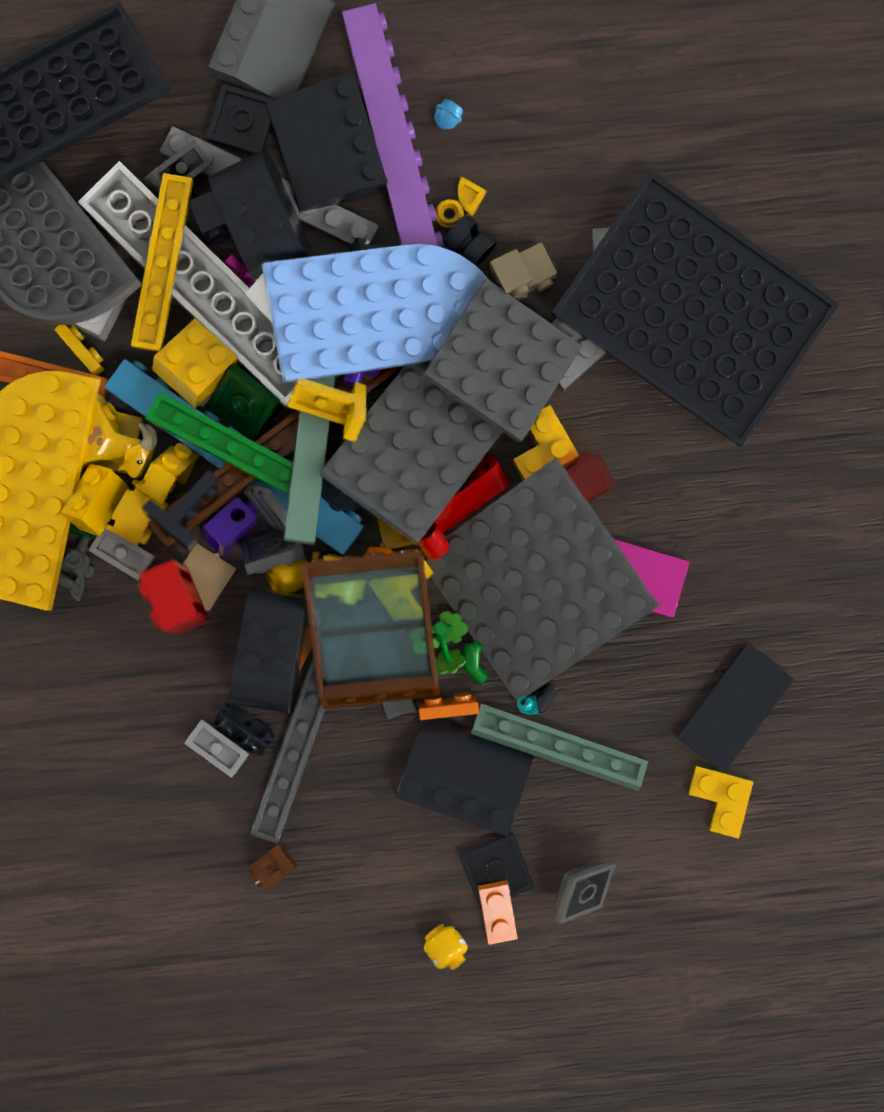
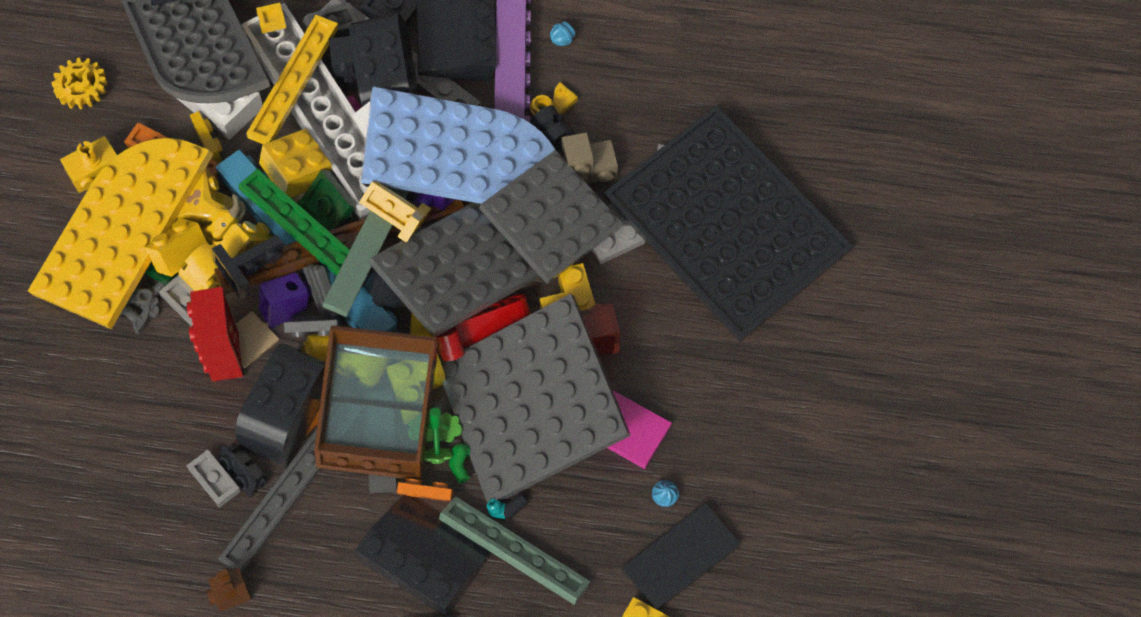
camera: 15 degrees right, 20 degrees down
(112, 188) = (271, 18): none -> yellow plate
(702, 643) = (665, 493): none -> dark azure plate

